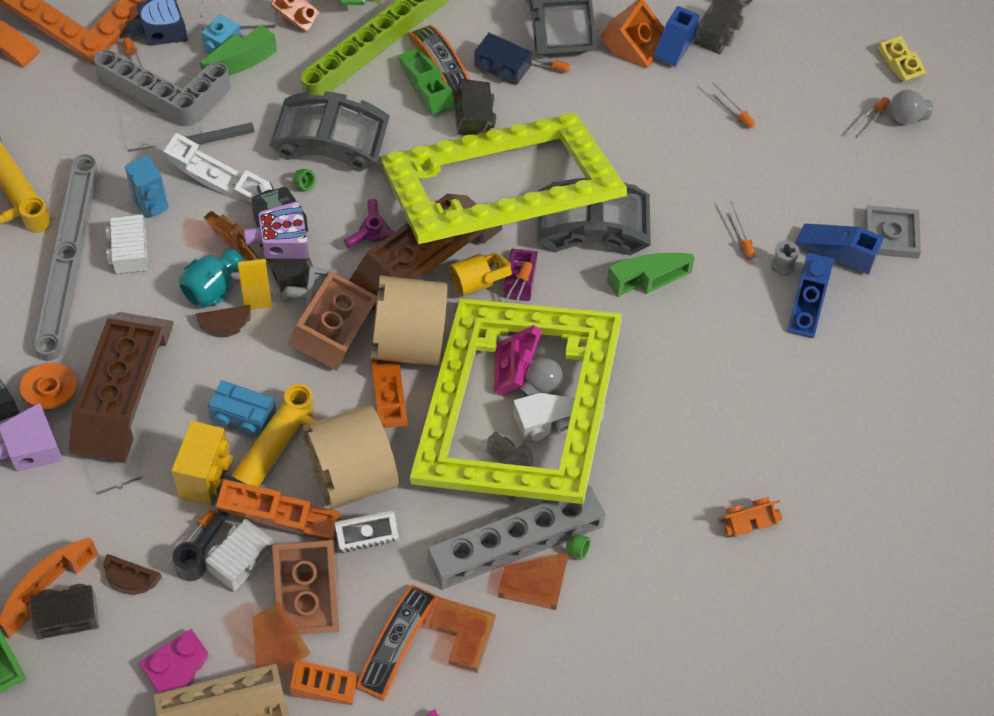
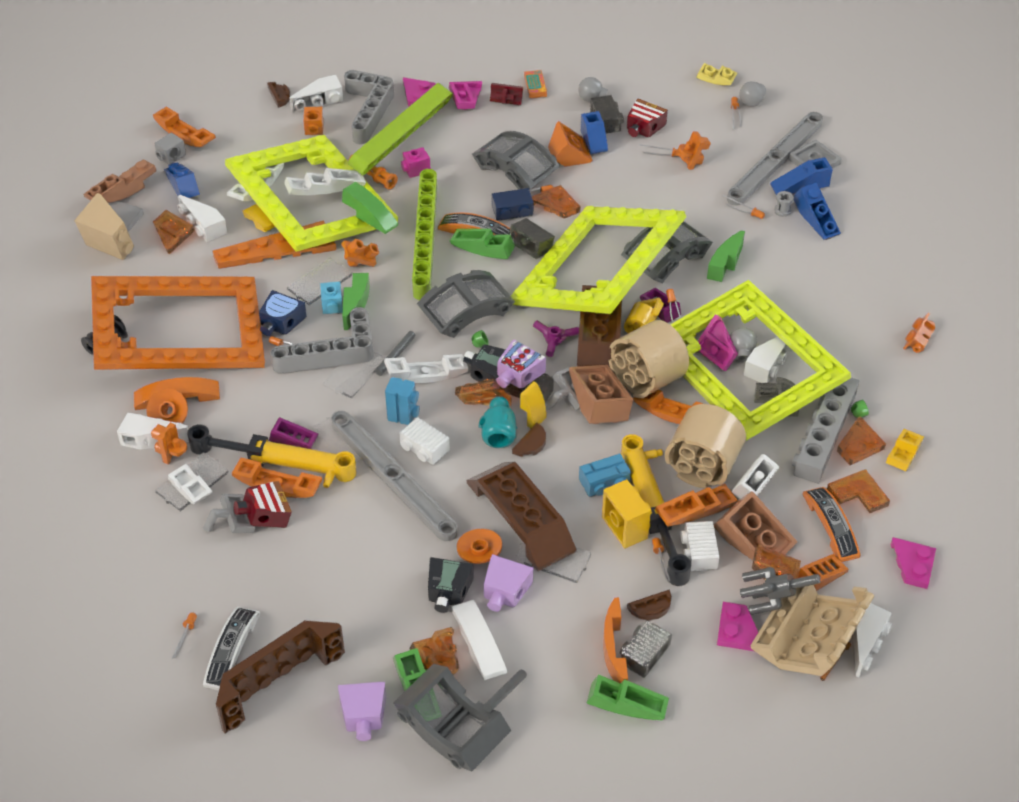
camera: 40 degrees left, 10 degrees down
(29, 132) = (292, 428): none -> magenta slope
(232, 658) = (773, 588): none -> dark grey plant
(554, 87) = (557, 201): none -> clear orange wing
(571, 629) = (904, 449): none -> yellow slope
(754, 58) = (645, 118): none -> torso
(756, 129) = (691, 151): none -> orange hips
(830, 201) = (767, 165): none -> light grey beam

